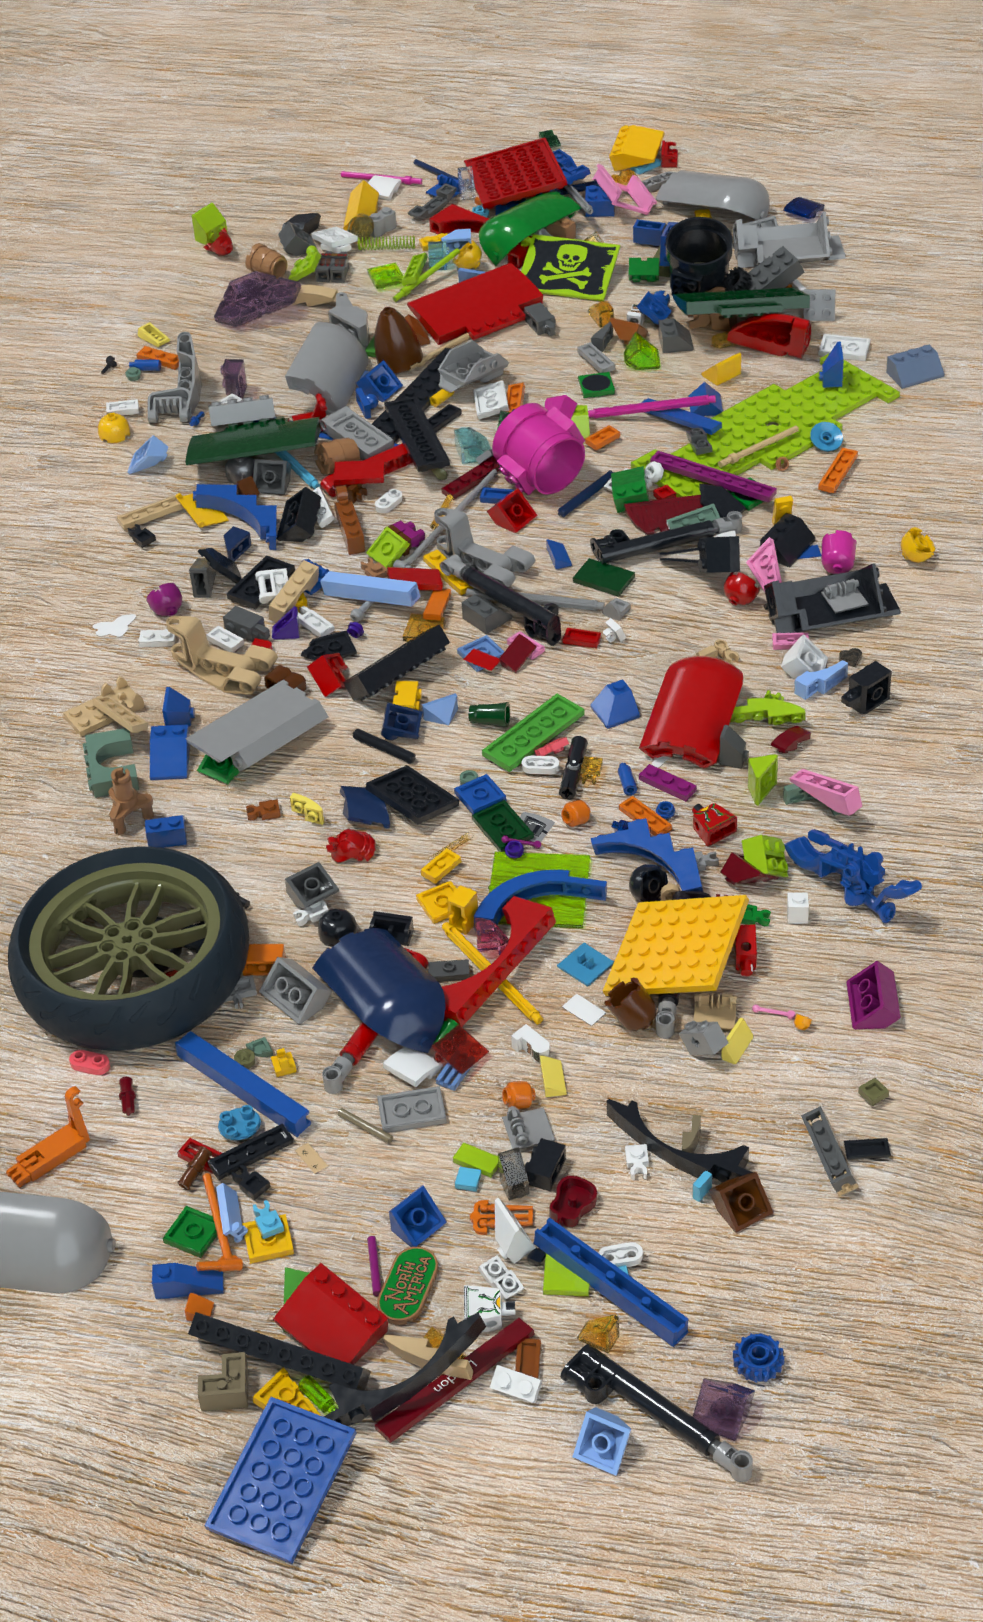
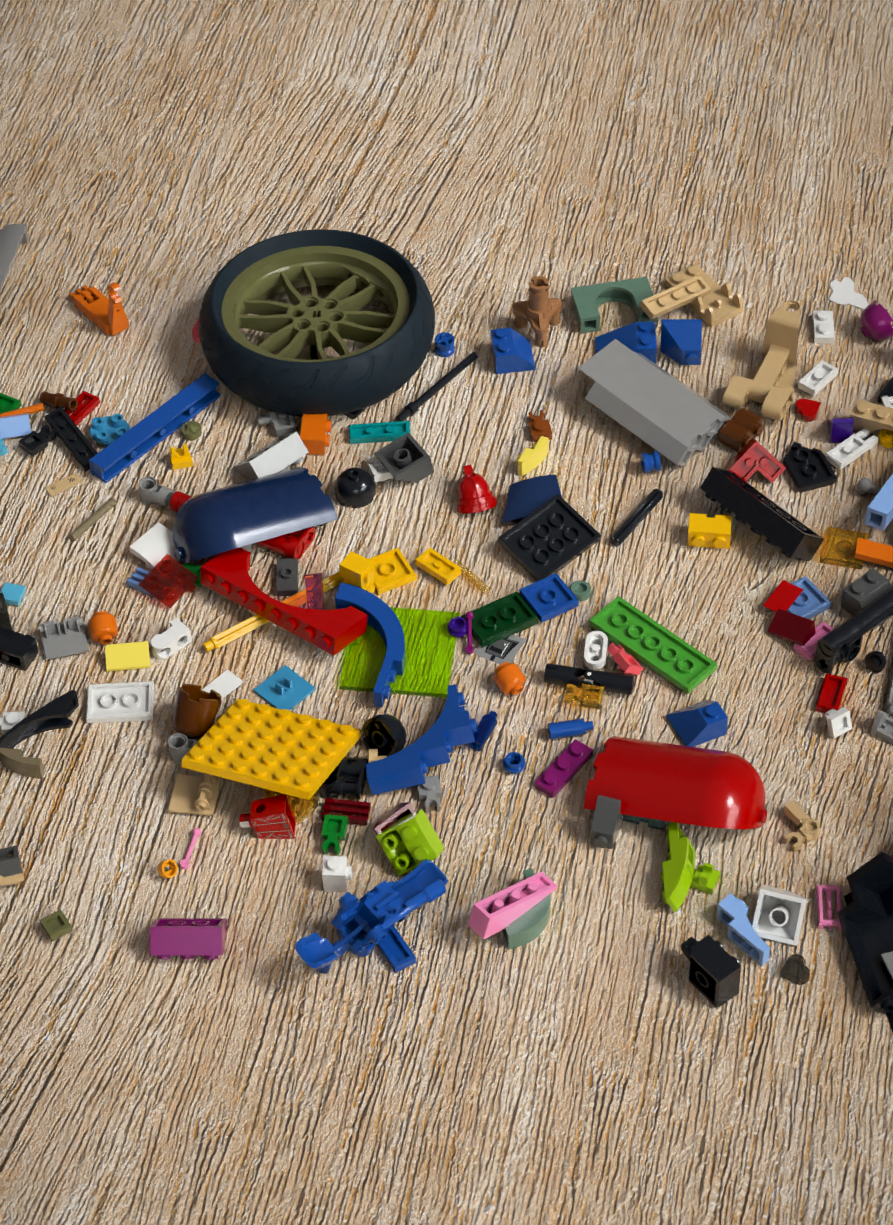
camera: 90 degrees right, 5 degrees up
(127, 1095) = (157, 353): dark red axle -> none
(245, 624) = (842, 391): dark grey hinge -> none
(260, 918) = (378, 432): none -> teal tile
(260, 1047) = (205, 441): sand green tile -> none
(320, 735) = (650, 462): none -> blue wheel
(355, 629) = (836, 484): dark purple plate -> none
(397, 925) = (349, 529): black hinge -> none
(400, 722) = (667, 526): dark blue slope -> none
(411, 1109) = (107, 552): light grey tile -> none
(441, 710) = (692, 563): medium blue slope -> none
(475, 1158) = (33, 600): lime tile -> none
(490, 714) = (680, 605): dark green plant -> none
(606, 1077) = (120, 702): none -> white tile
(637, 810) = (512, 741): orange tile -> none
(703, 1038) = (141, 770): light grey brick -> none
(713, 823) = (485, 803): red torso -> none
(738, 1041) = (146, 809): light yellow slope -> none
(762, 776) = (545, 846): lime slope -> none
(790, 738) = (631, 888): dark red slope -> none

